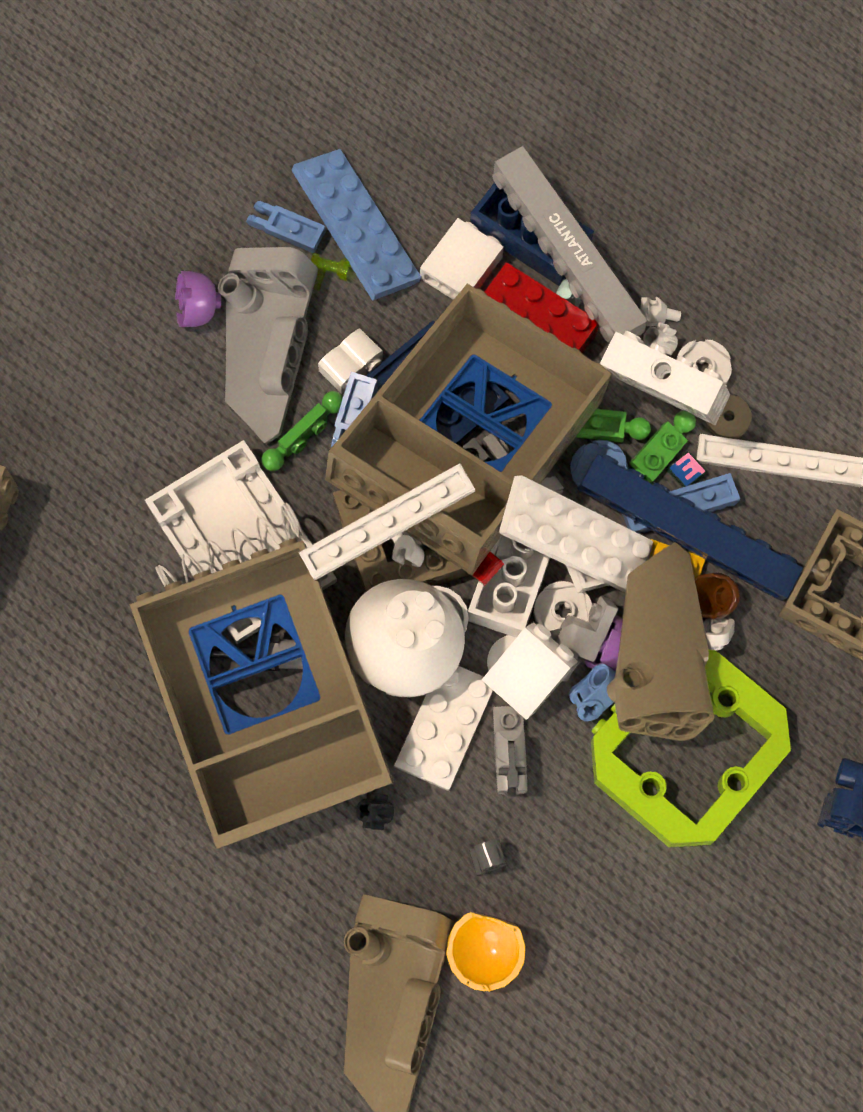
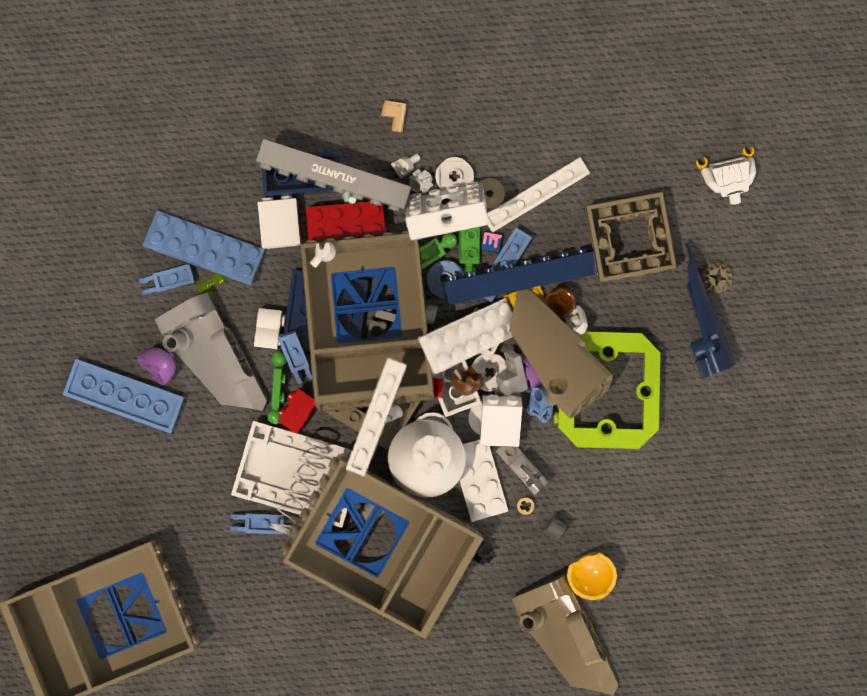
camera: 35 degrees left, 15 degrees up
(128, 306) = (123, 396): none -> medium blue plate
(144, 559) = (258, 523): none -> medium blue hinge
(303, 473) = (298, 410): none -> red brick
(467, 806) = (527, 500): none -> tan bush
(486, 311) = (325, 254): none -> white piece
(526, 587) = (466, 381): none -> reddish brown hair
(694, 251) = (397, 112): none -> tan piece

